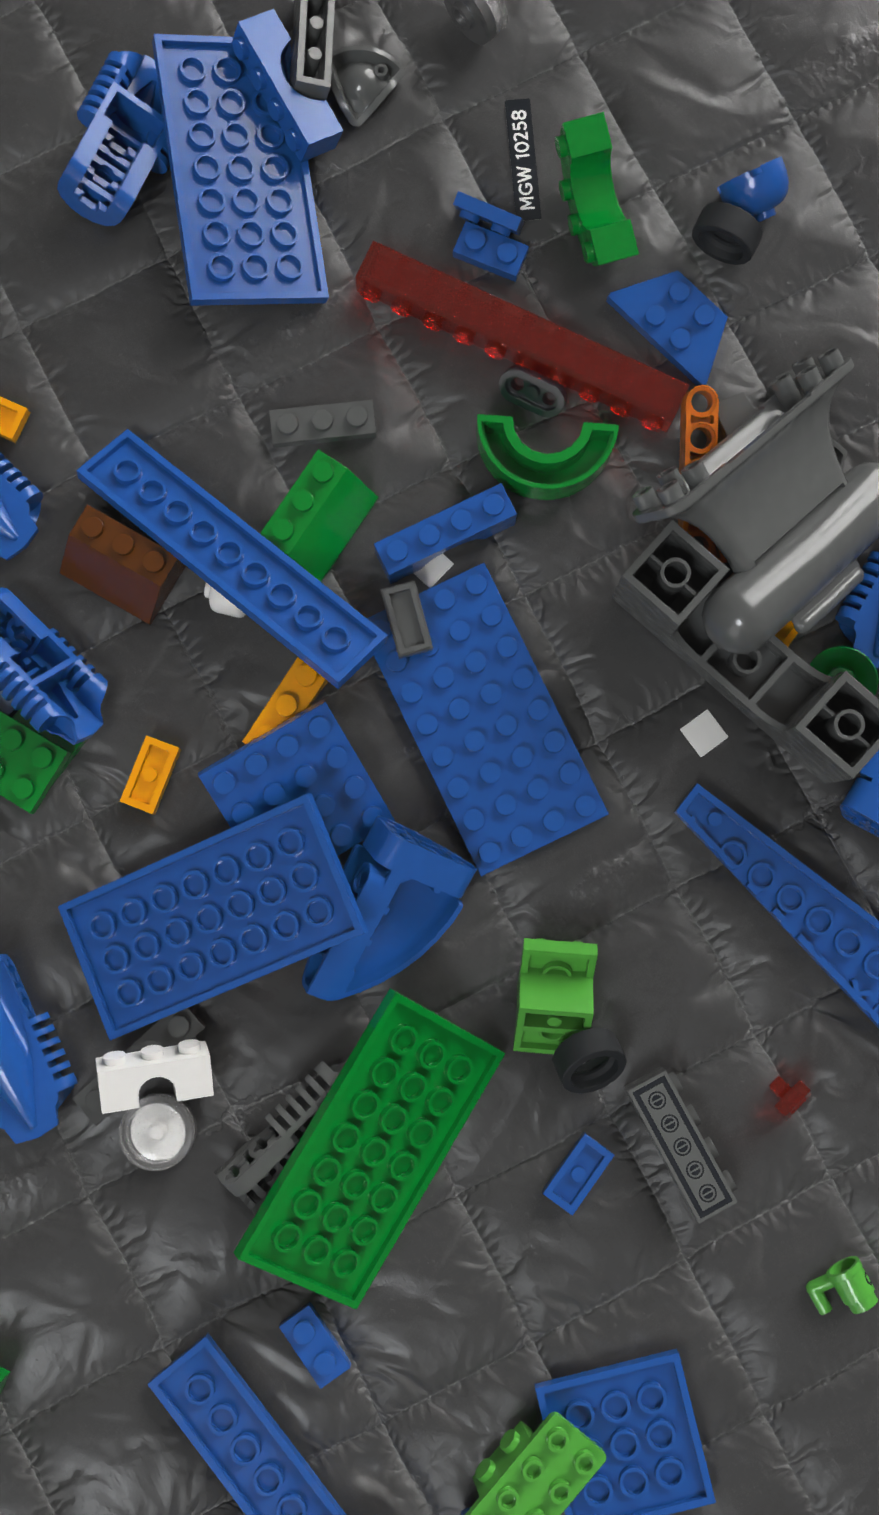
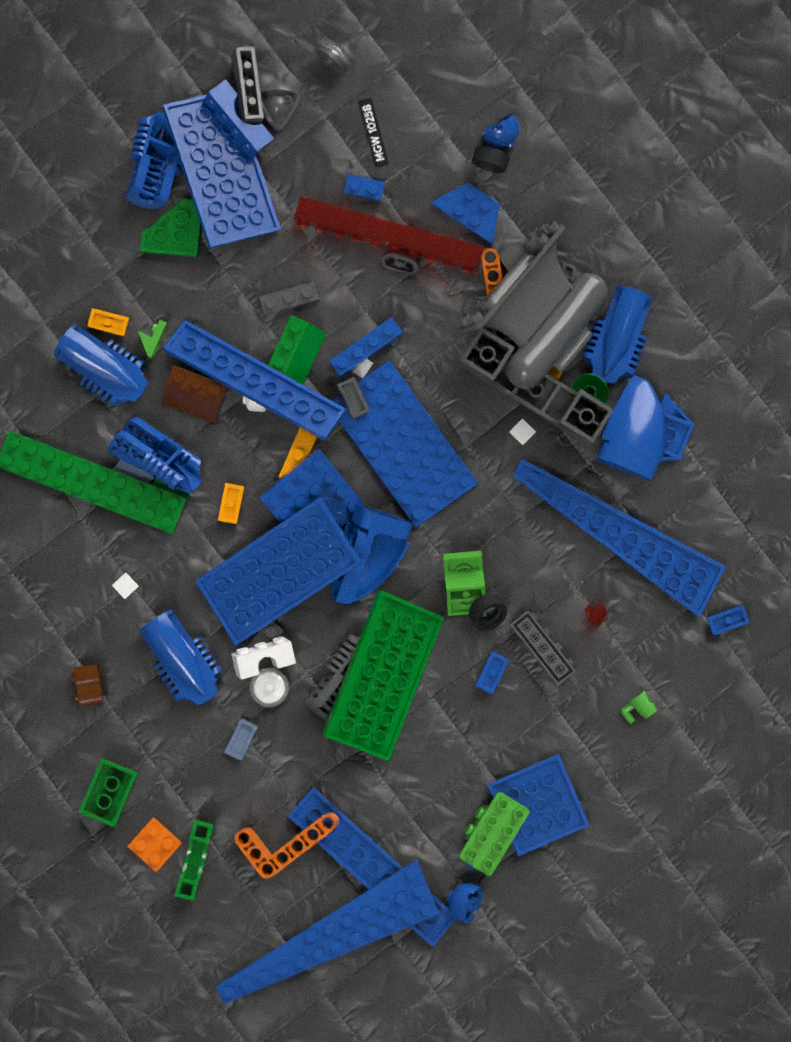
camera: 10 degrees left, 0 degrees up
(62, 461) = (152, 343): none -> bright green slope
(89, 1217) = (241, 739): none -> sand blue tile
(137, 1452) = (289, 848): none -> orange beam
(138, 274) = (174, 233): none -> green plate
(315, 1345) = (370, 784): blue plate -> none
(473, 209) = (367, 171): blue plate -> none
(541, 474) = (412, 308): green brick -> none
(590, 191) = (415, 152): green brick -> none

